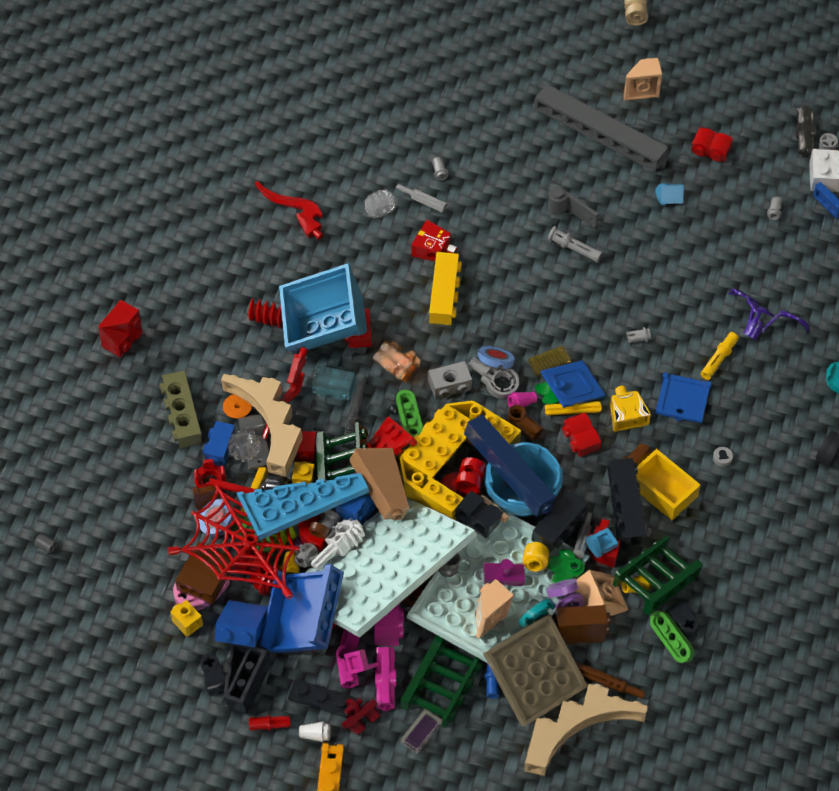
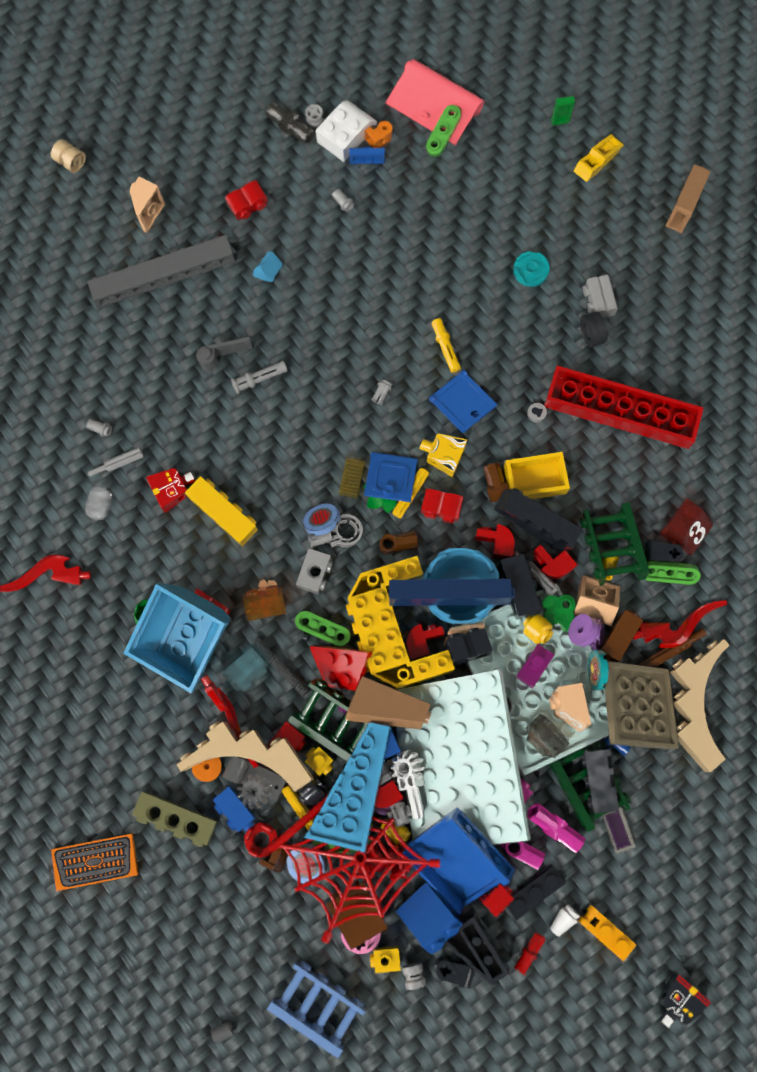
camera: 50 degrees left, 20 degrees up
(94, 587) = (298, 1019): none -> medium blue fence
(107, 380) = (94, 862): none -> tile
(120, 328) = (55, 818): red slope -> none
(188, 647) = (414, 976): none -> light grey wheel
(265, 313) = (132, 678): red piece -> none
(295, 662) = (497, 898): none -> red brick
(318, 530) = (392, 792): reddish brown tile -> none
(358, 662) = (537, 844): dark pink panel -> none
(367, 710) = (573, 873): dark red hips -> none
(450, 611) = (546, 737): none -> clear smoke slope
(451, 674) = (600, 780): none -> black wedge
(470, 475) = (433, 632): red wheel -> none
(522, 398) = (373, 530): dark pink cone -> none
(589, 490) = (502, 540): none -> red brick
(601, 542) = (558, 566): dark azure tile -> none
(616, 669) = (671, 638): none -> red piece
(723, 625) = (687, 526): none -> clear red slope
(755, 326) = (442, 298): dark purple plant -> none
(783, 513) = (624, 407): none -> red brick

